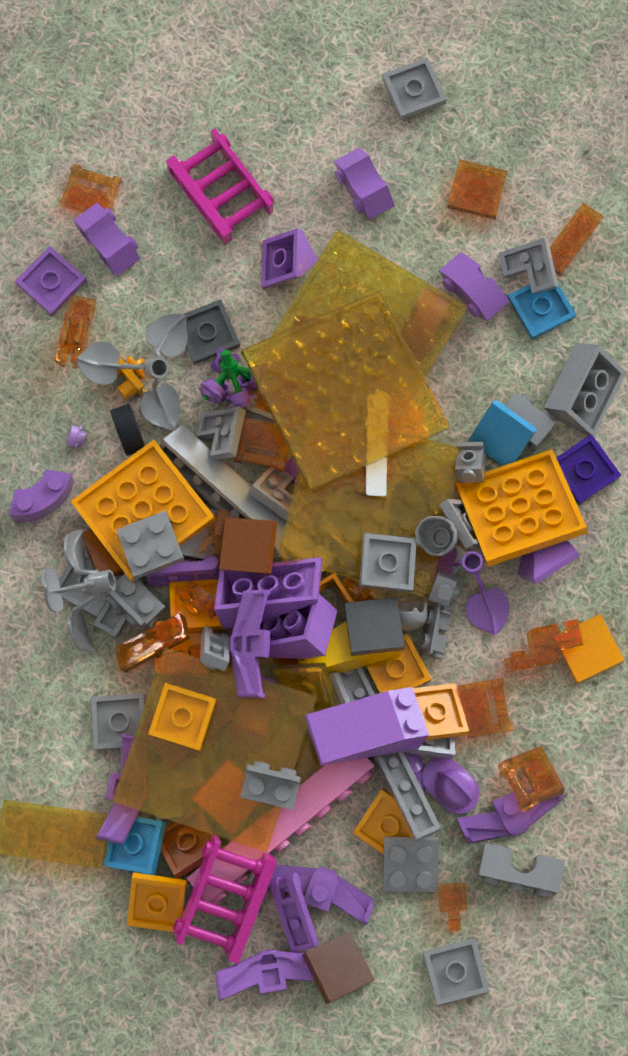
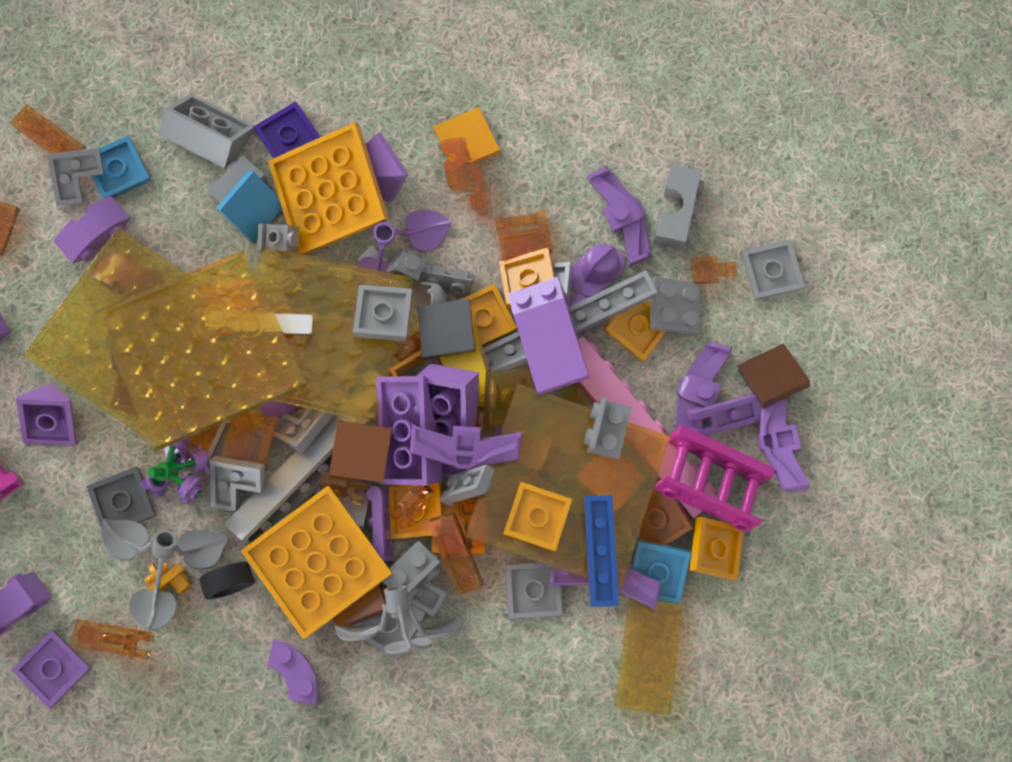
camera: 90 degrees left, 0 degrees up
(76, 436) = (229, 638): lavender plate -> none
(148, 779) = (601, 551): none -> blue plate
(150, 545) = (356, 551): light grey plate -> none
(436, 535) = (357, 265): light grey hair -> none
(457, 515) = (343, 245): light grey tile -> none
(539, 775) = (589, 185): clear orange plate -> none

